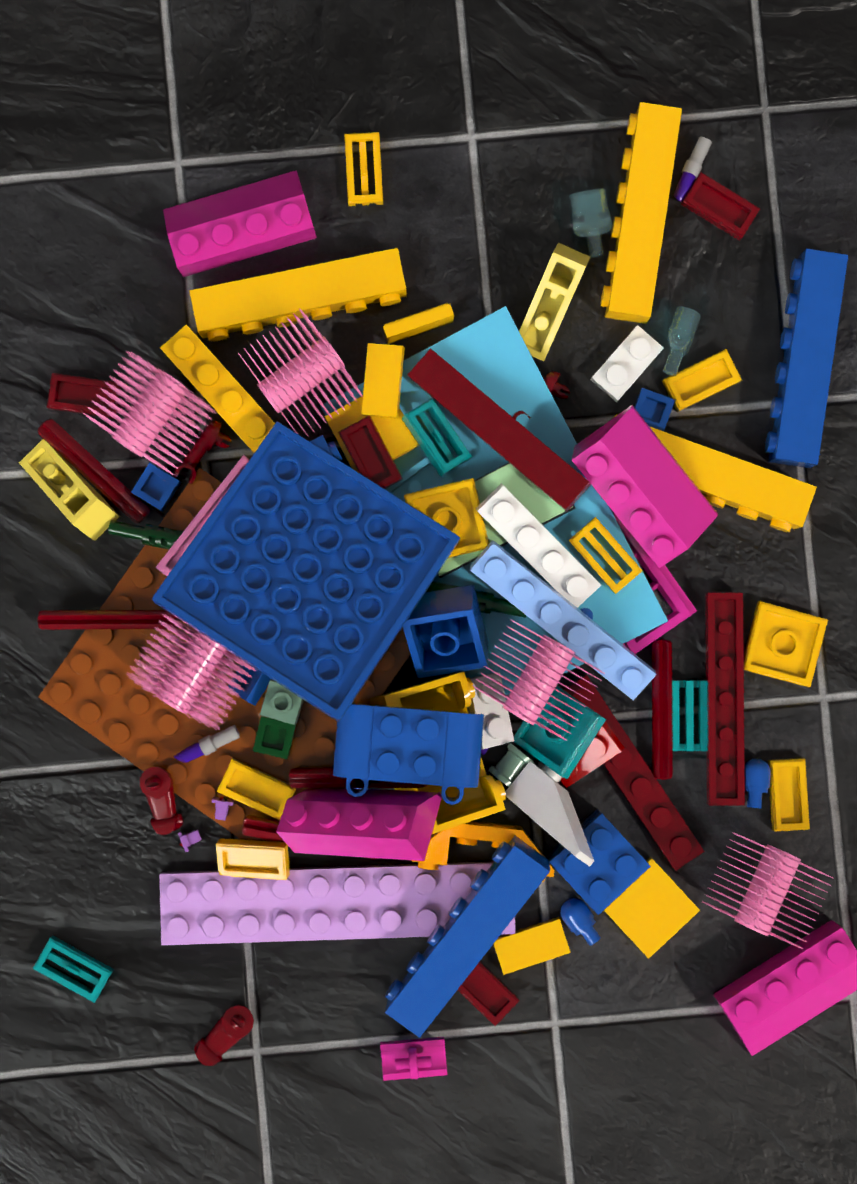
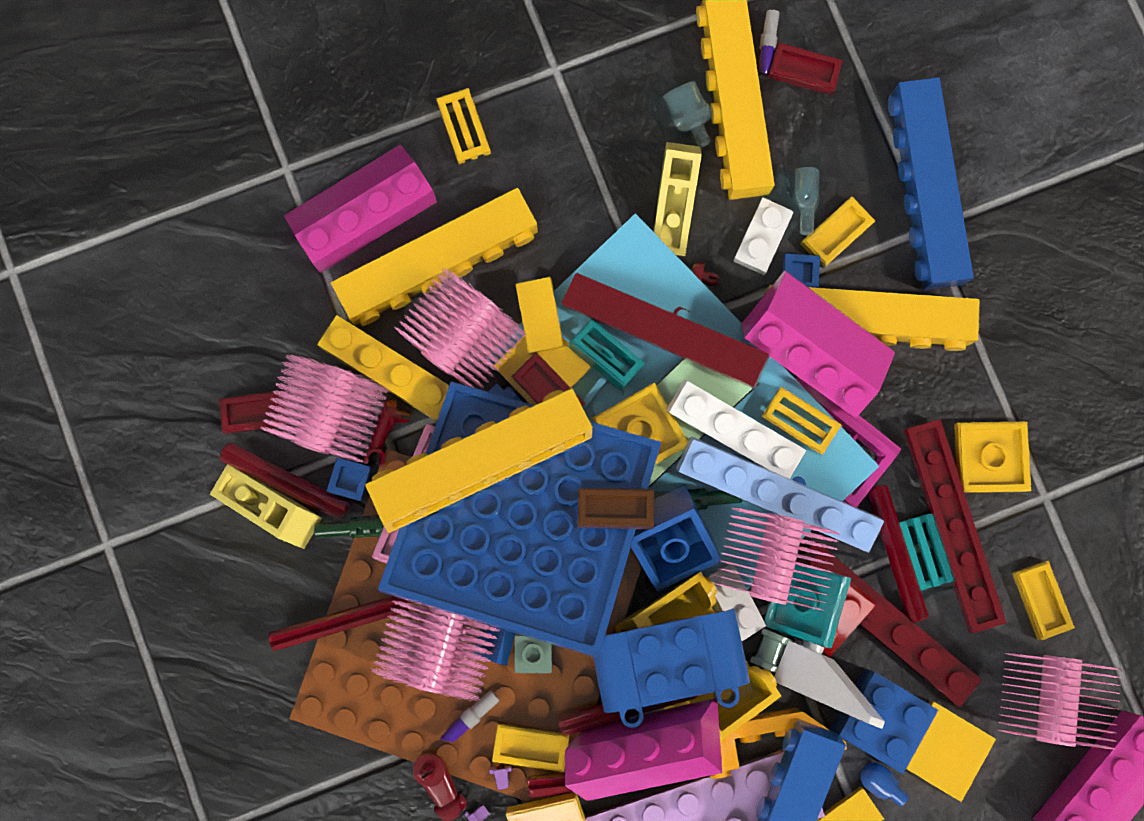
camera: 20 degrees left, 5 degrees down
(274, 737) = (533, 691): dark green plate -> none
(281, 504) = (479, 459): none -> yellow brick
(396, 587) = (615, 508): none -> reddish brown tile
(418, 323) = (557, 252): yellow tile -> none
(756, 781) = (1010, 596): blue cylinder -> none

